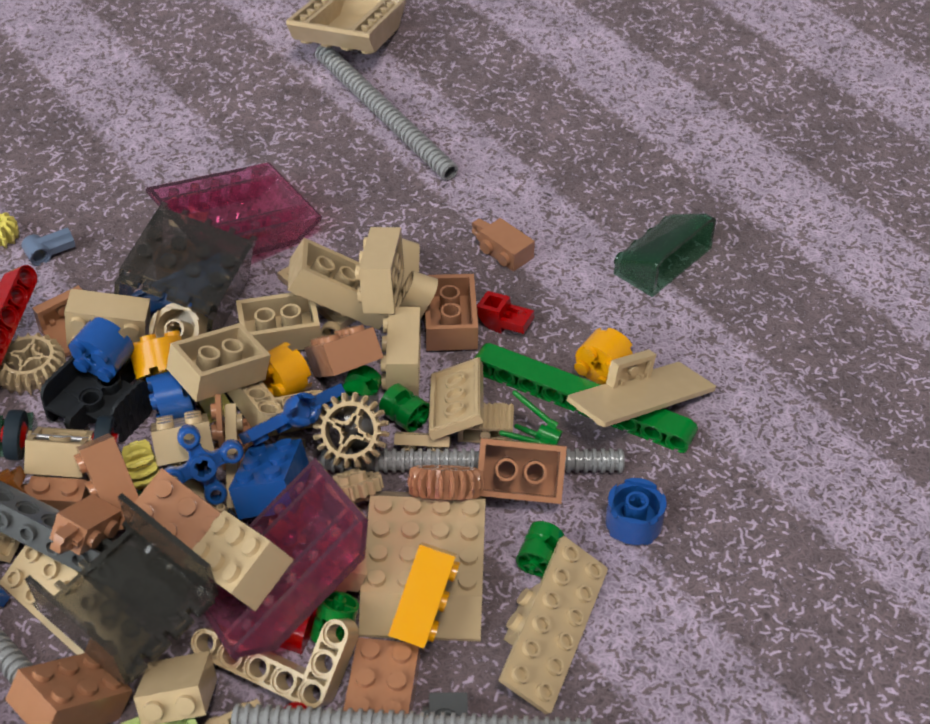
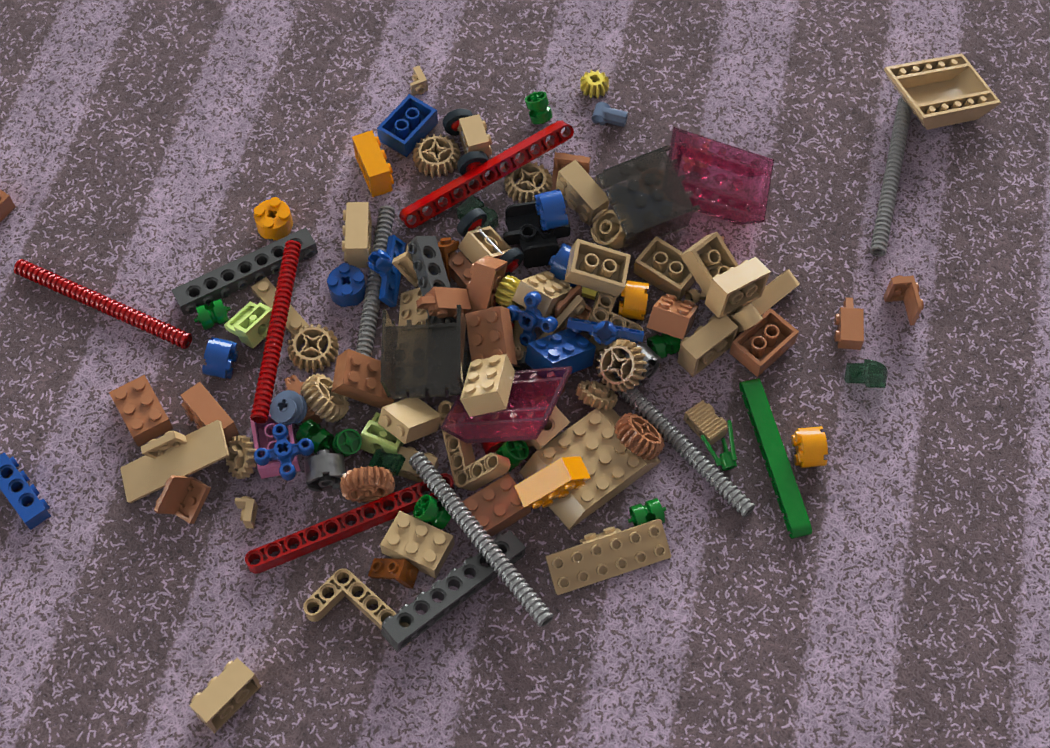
camera: 50 degrees right, 15 degrees up
(152, 353) = (576, 230): light orange brick -> none
(404, 407) = (674, 376): green wheel -> none
(412, 440) = (663, 401): tan plate -> none
(456, 398) = (702, 395): tan tile -> none
(499, 314) = (792, 370): red brick -> none
(522, 470) = (684, 466): nougat brick -> none
(524, 179) = (907, 290): none -> nougat bracket
(569, 265) = (870, 373): none -> clear green brick
(635, 512) = (716, 543): blue brick -> none
(638, 389) = (802, 482): tan bracket -> none
(665, 251) = (936, 416): clear green windscreen -> none

